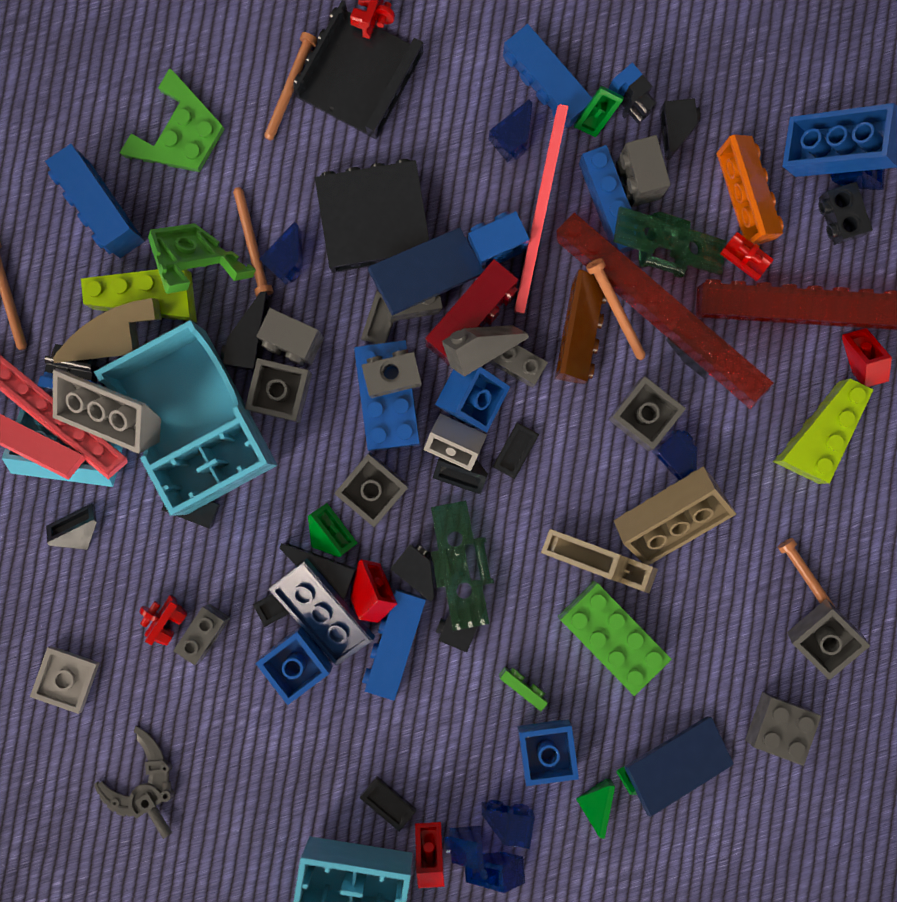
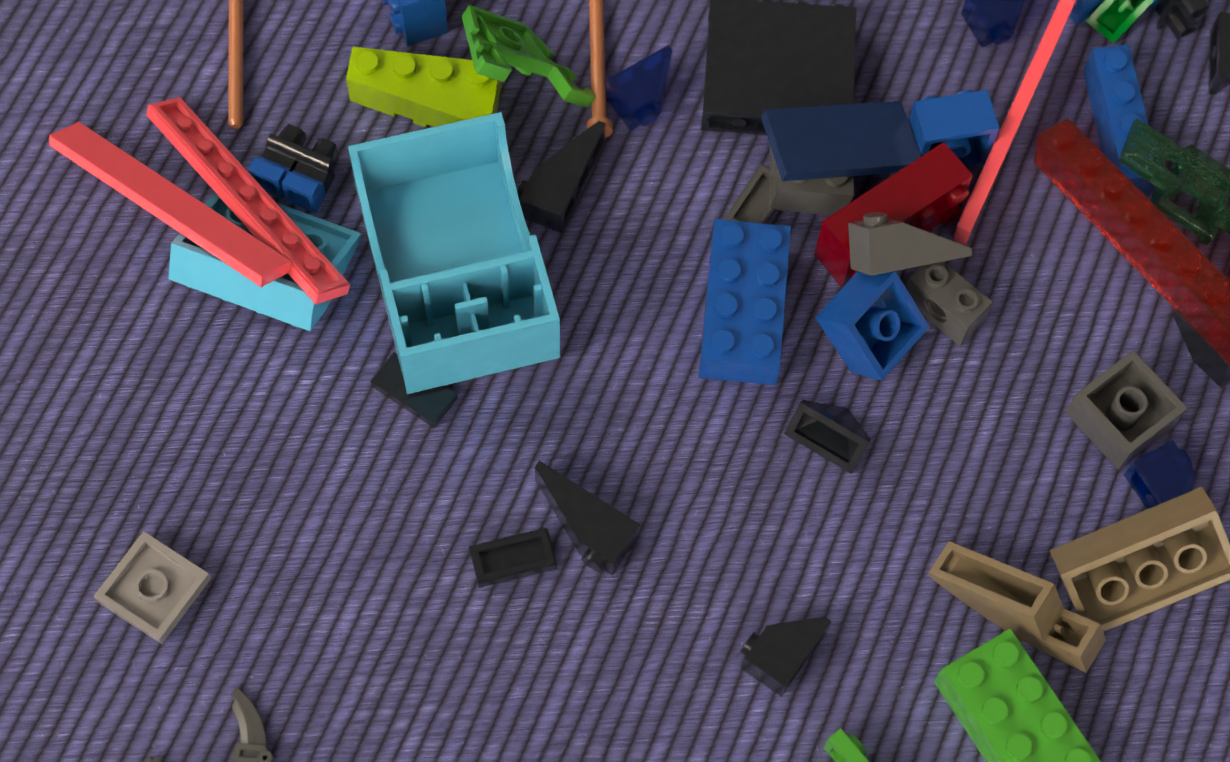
camera: 10 degrees right, 20 degrees down
(74, 529) = (234, 380): black slope -> none
(104, 412) = (344, 203): light grey slope -> none
(110, 332) = (373, 114): dark tan slope -> none
(157, 630) = (314, 550): red hips -> none
(201, 634) = (382, 567): dark grey brick -> none
(278, 390) = (590, 255): dark grey brick -> none
(290, 336) = (625, 187): dark grey brick -> none
(294, 665) = (513, 642): blue brick -> none
(321, 612) = (574, 576): dark blue tile -> none
(328, 532) = (609, 470): green slope -> none
(371, 489) = (693, 418): dark grey brick -> none
(371, 592) = (656, 567): red slope -> none
(395, 645) = (673, 654): blue brick -> none
(406, 379) = (747, 271): dark grey brick -> none
(416, 570) = (729, 551): black slope -> none
(452, 566) = (789, 560): clear green piece -> none
(455, 442) = (831, 383): light grey brick -> none
(515, 450) = (917, 424): black tile -> none
(580, 329) = (1048, 274): reddish brown slope -> none
(596, 268) = (1107, 255): nougat bar -> none
(643, 171) = (1176, 88): dark grey brick -> none

